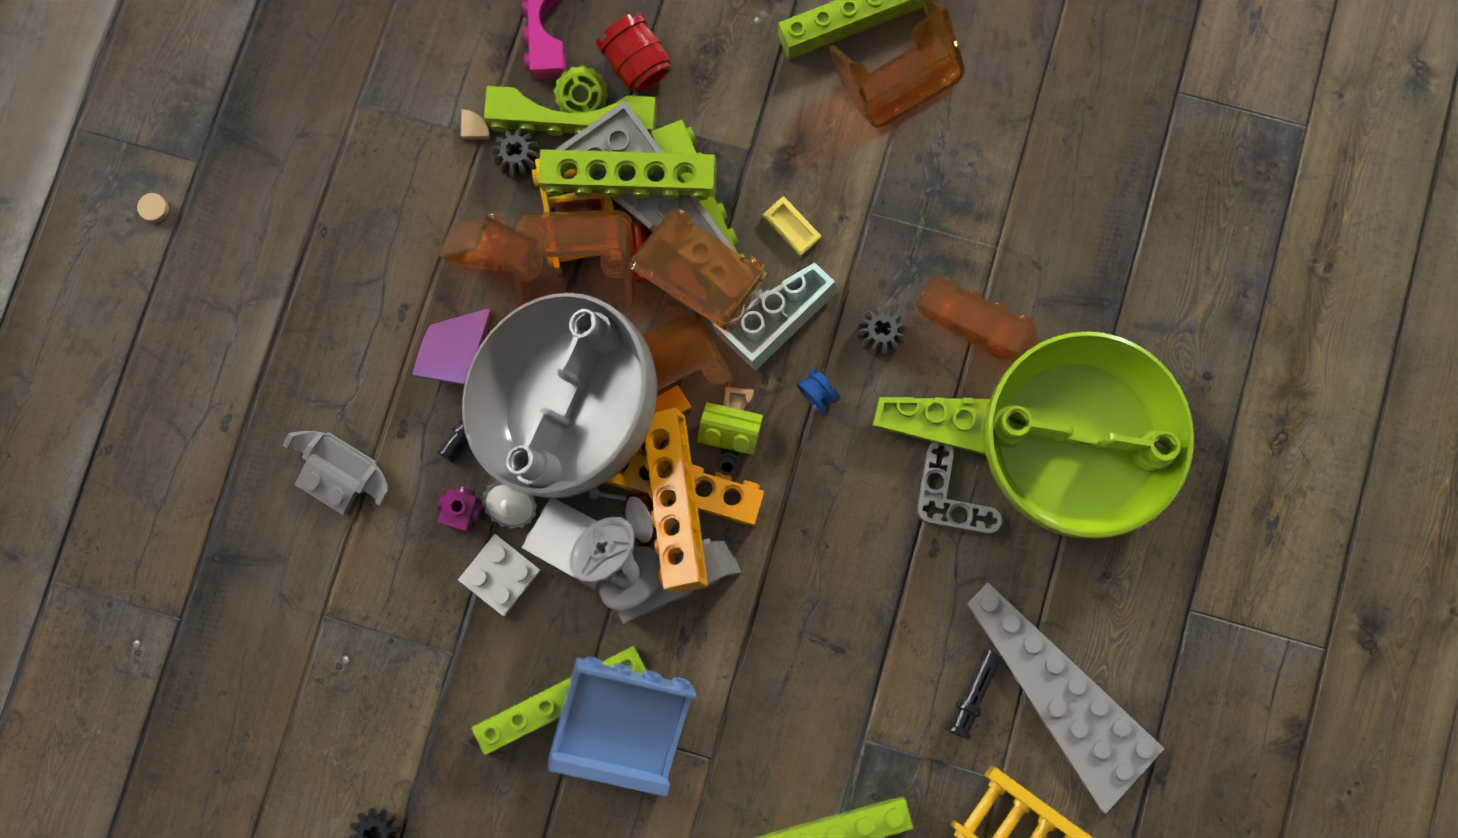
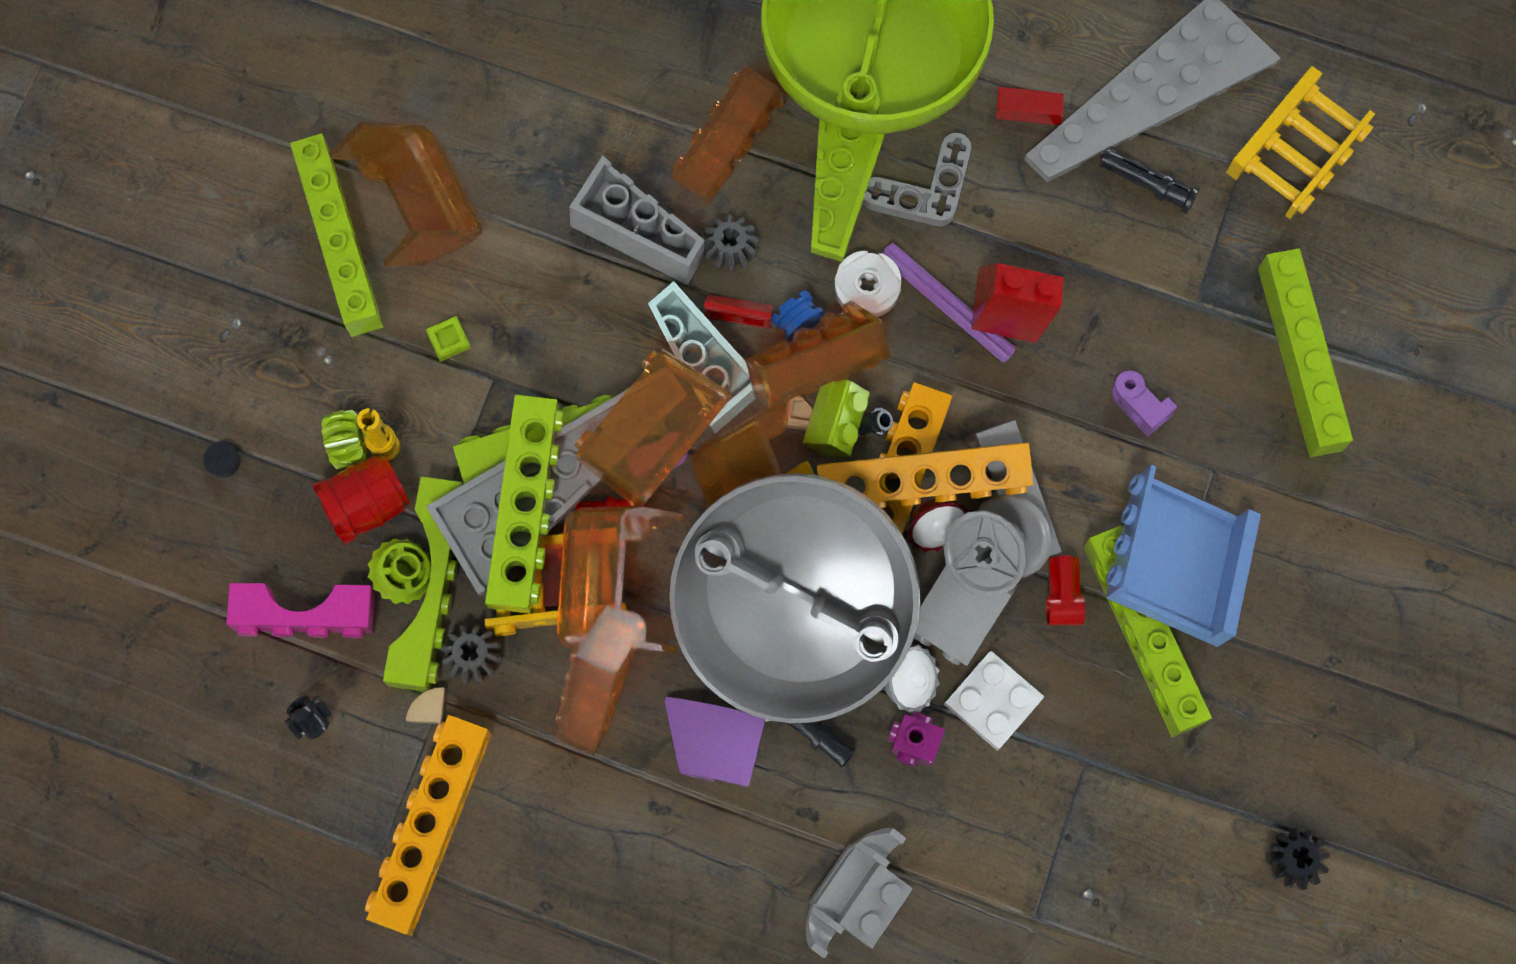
camera: 90 degrees left, 5 degrees down
(313, 108) = (405, 914): none -> light orange brick
(458, 35) = (308, 717): none -> black gear
(585, 630) = (1065, 602): none -> red piece
(684, 35) = (343, 439): none -> lime gear
(685, 58) = (376, 435): none -> yellow pin
(771, 682) = (1140, 404): none -> medium lavender leg
(776, 405) = (818, 356): none -> clear orange wedge
(780, 110) = (448, 338): none -> lime tile
(792, 226) = (593, 336): light yellow tile -> none
(824, 343) = (738, 311): none -> red slope
(838, 449) = (868, 266): none -> white plate
(844, 520) = (947, 302): none -> medium lavender axle
(845, 574) = (1015, 301): none -> red slope
(893, 243) = (634, 223): none -> light grey wedge
(1036, 584) = (1029, 106): none -> red slope

